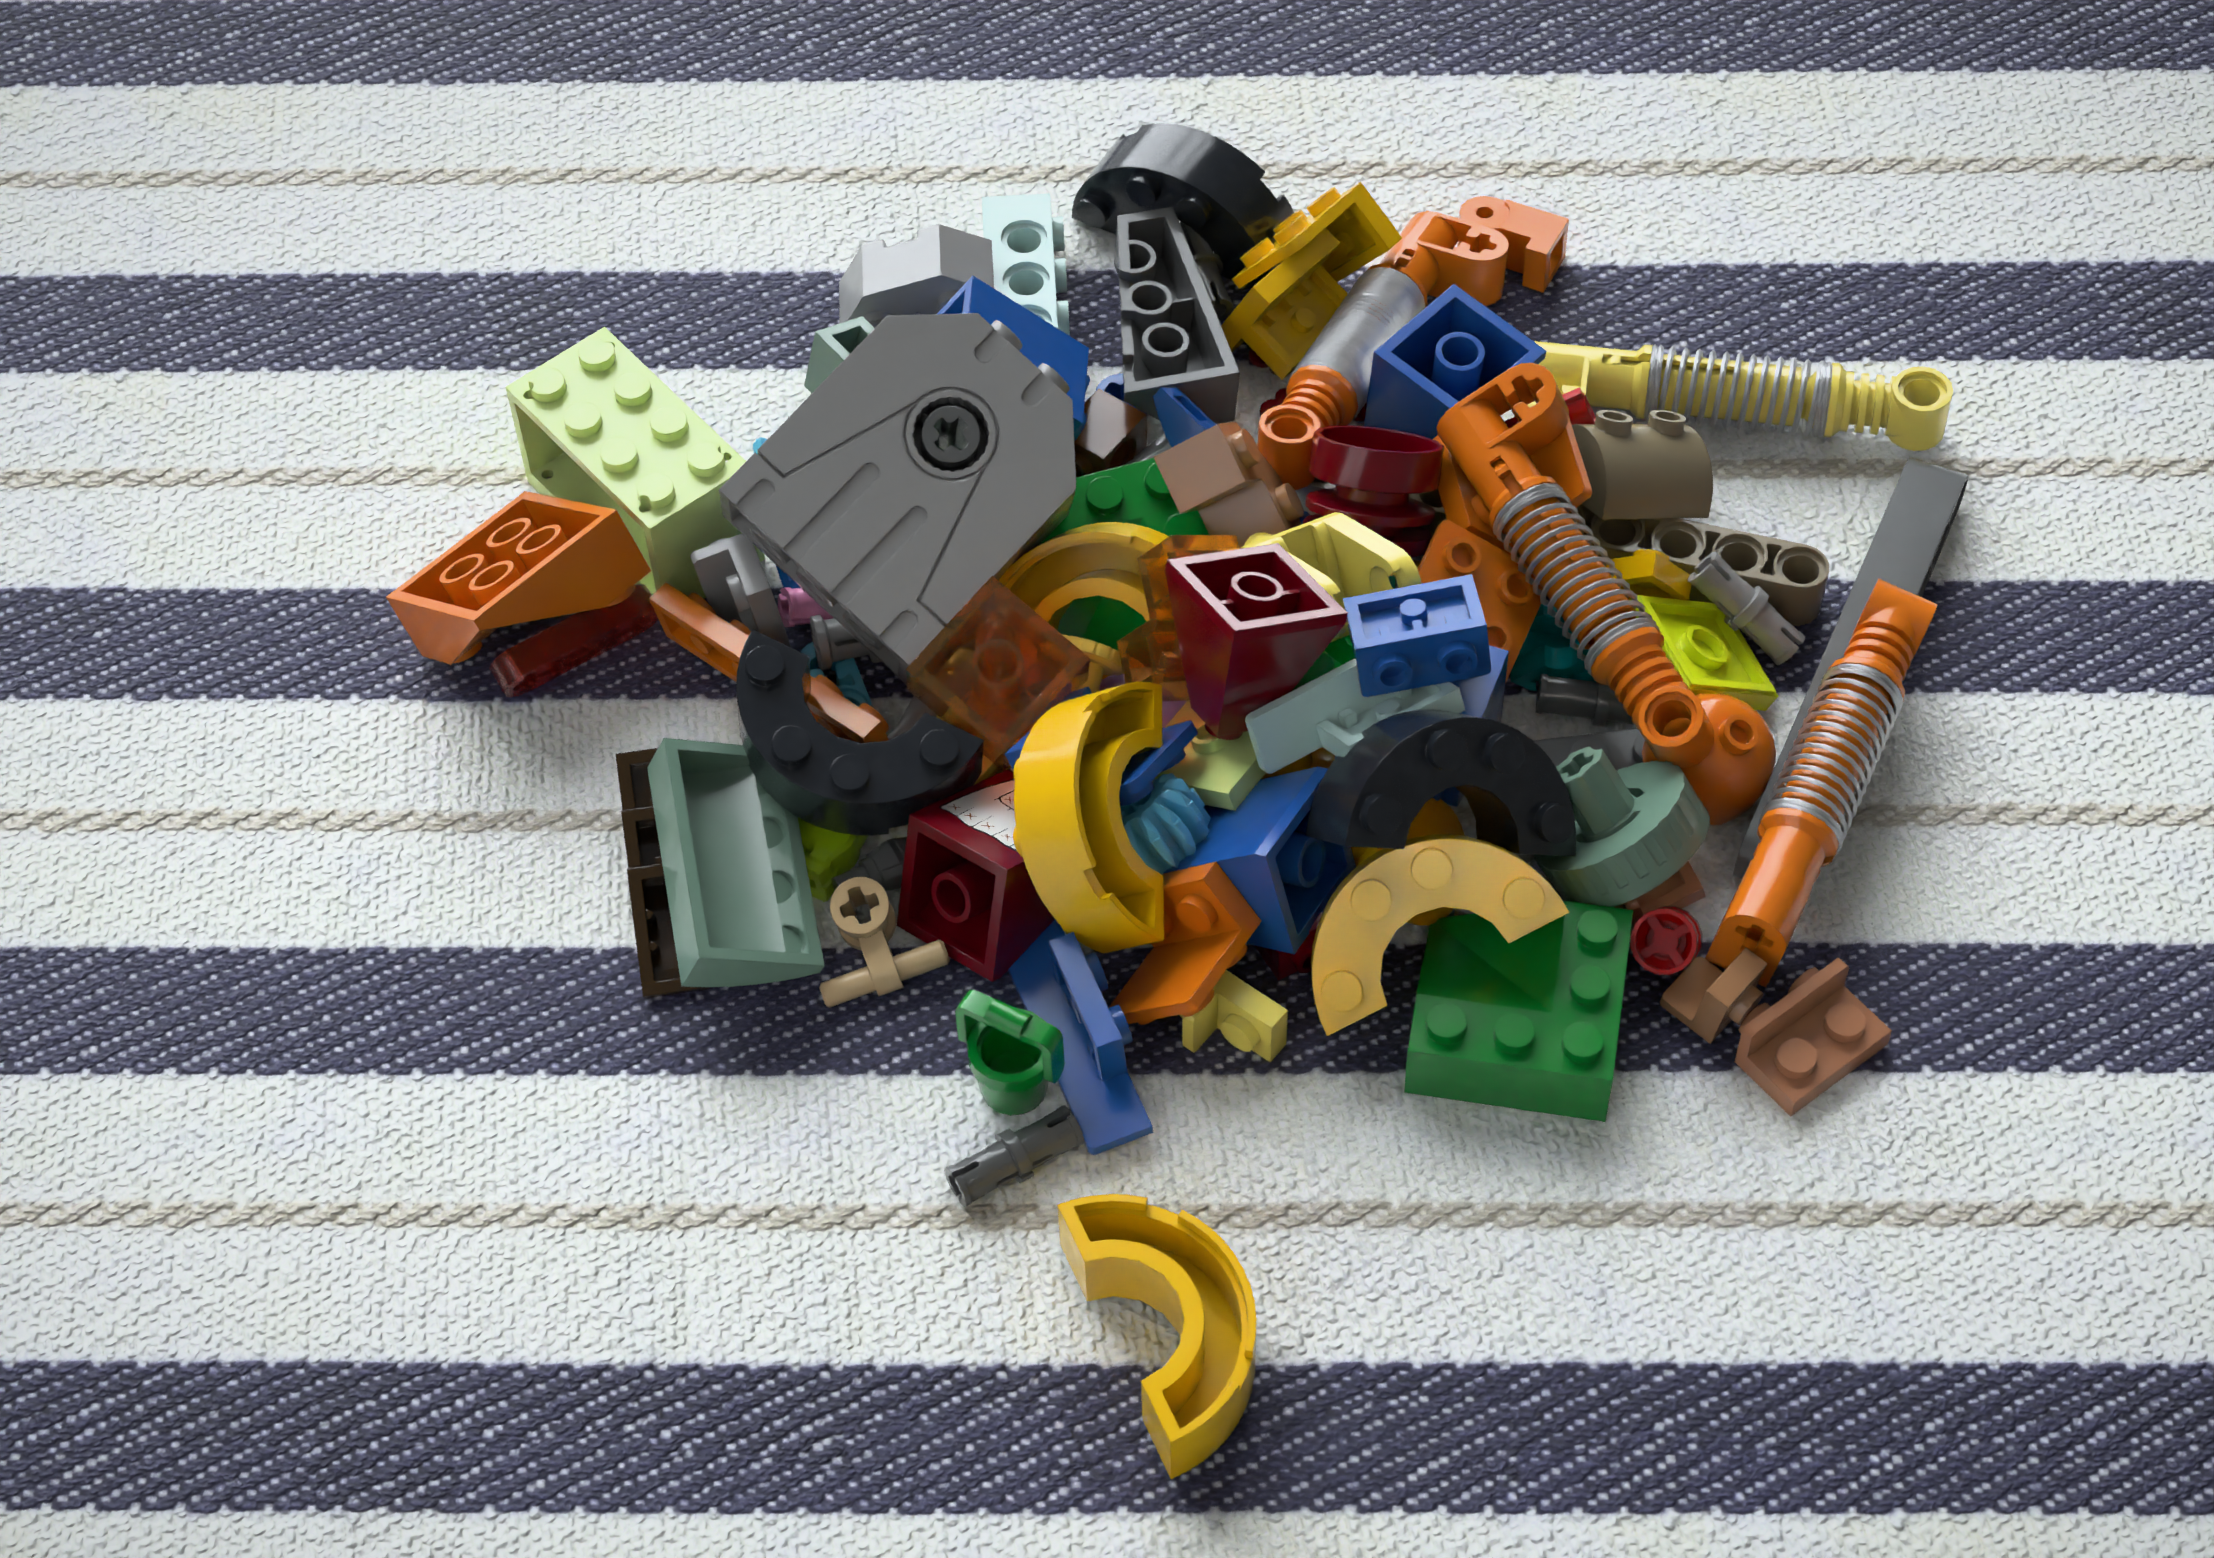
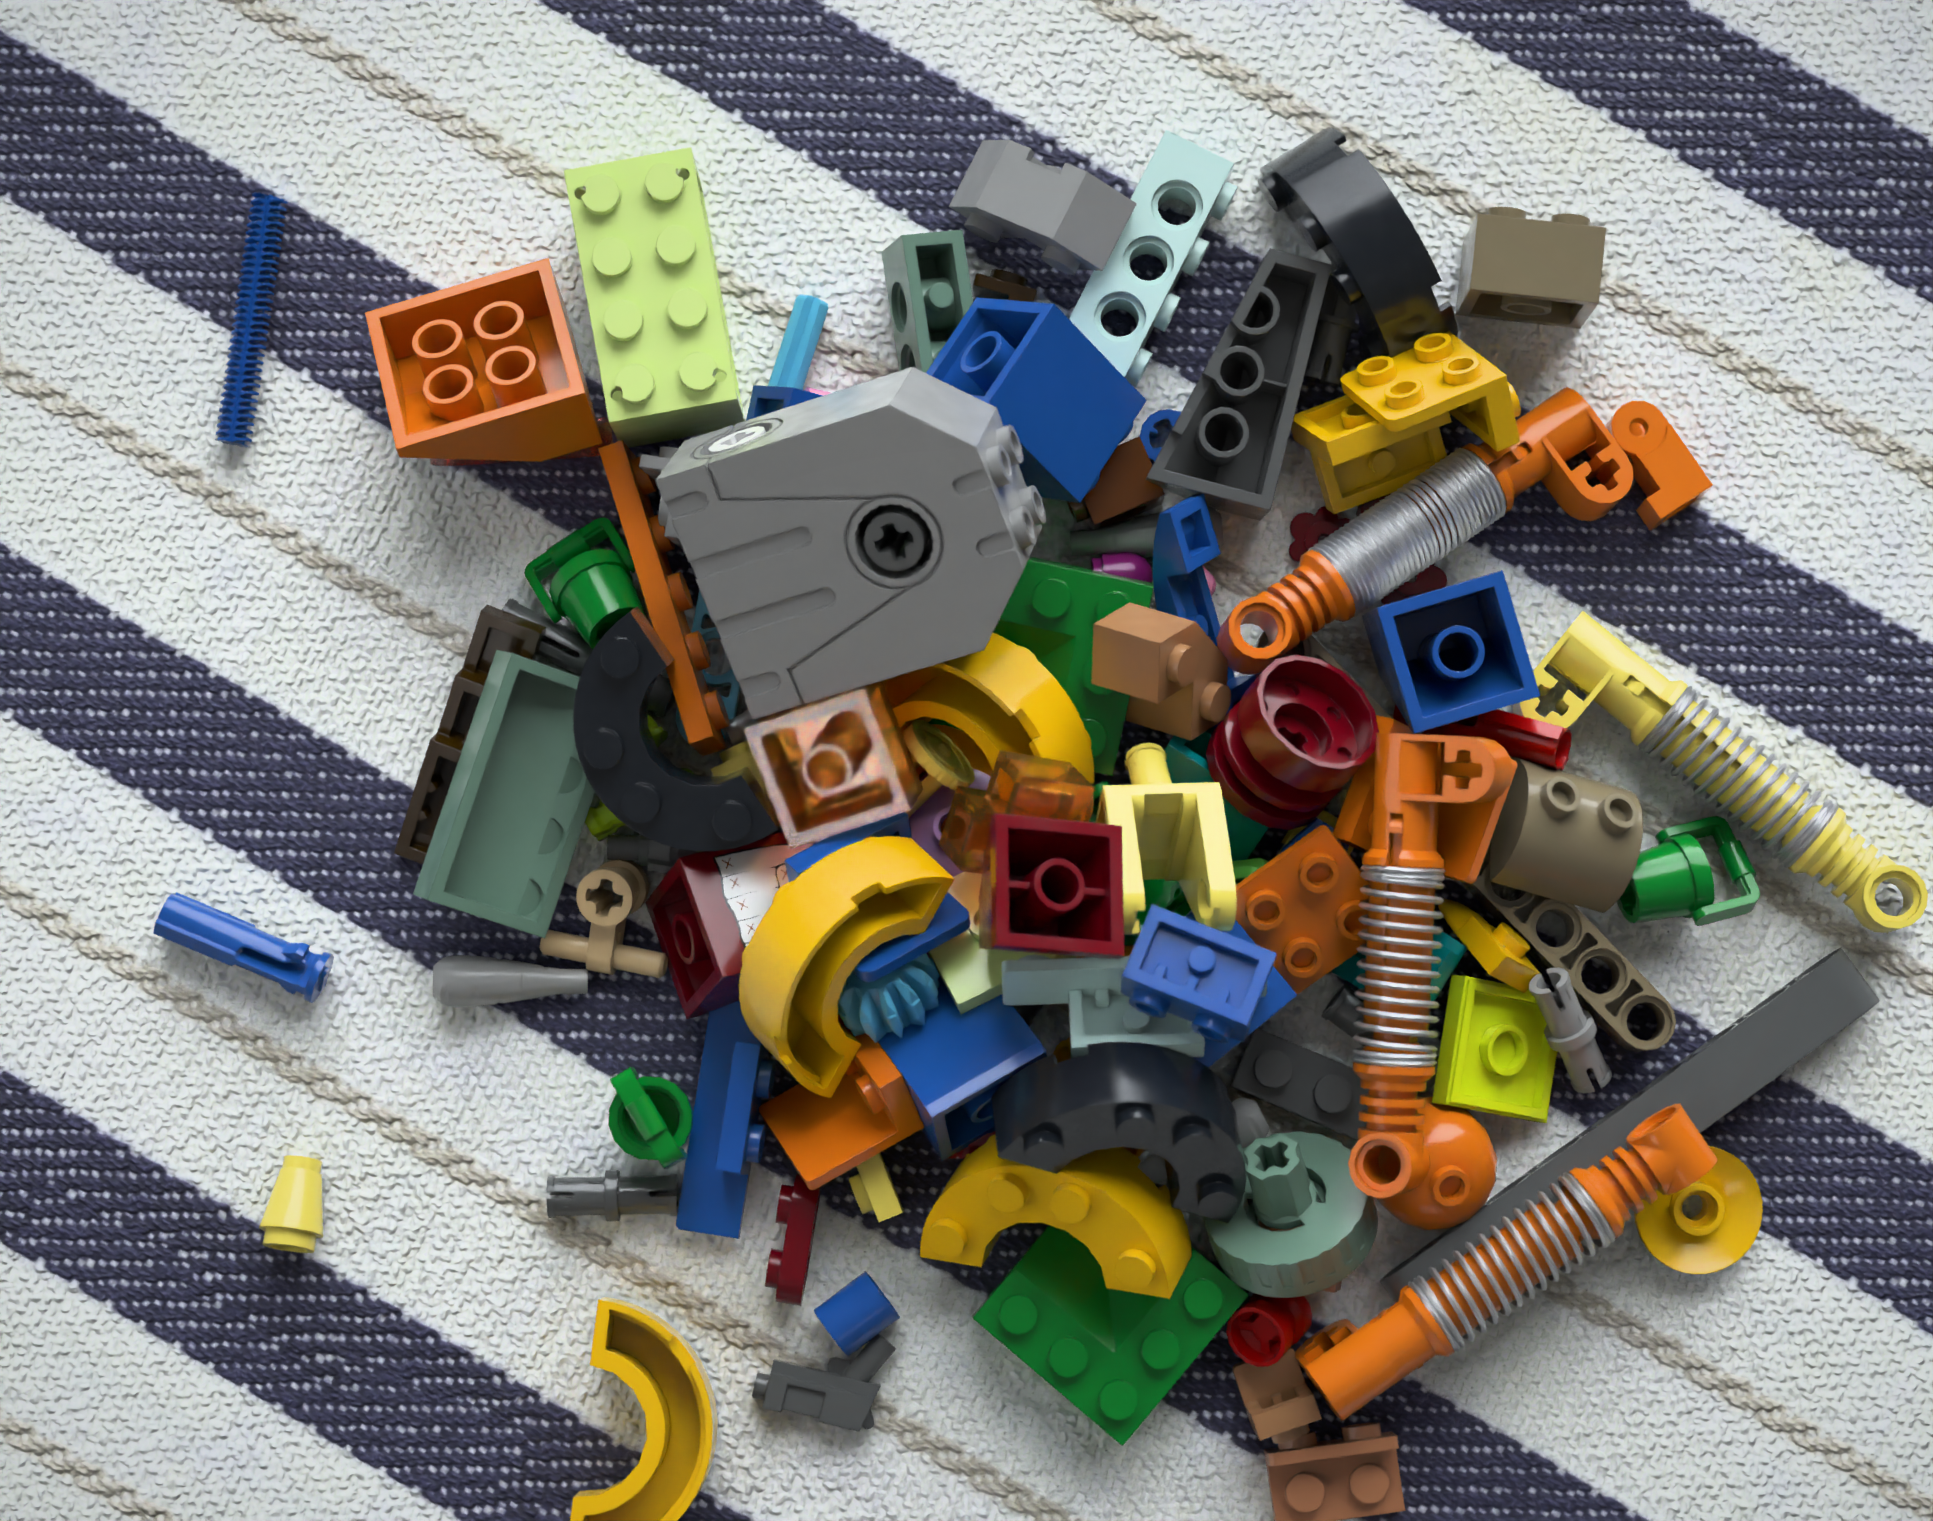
camera: 30 degrees right, 30 degrees up
(285, 676) = (250, 319): none -> blue axle
(532, 1130) = (243, 945): none -> blue piece
(696, 704) = (590, 585): none -> green piece
(719, 1318) = (295, 1207): none -> light yellow cone
(800, 1041) = (489, 981): none -> light grey piece
(1214, 1115) = (789, 1267): none -> dark red plate
(1300, 1128) = (856, 1313): none -> blue beam
(1325, 1211) = (835, 1397): none -> dark grey piece
(1329, 143) = (1531, 268): none -> dark tan brick
(1754, 473) = (1678, 880): none -> green piece
(1970, 678) = (1718, 1233): none -> yellow dish

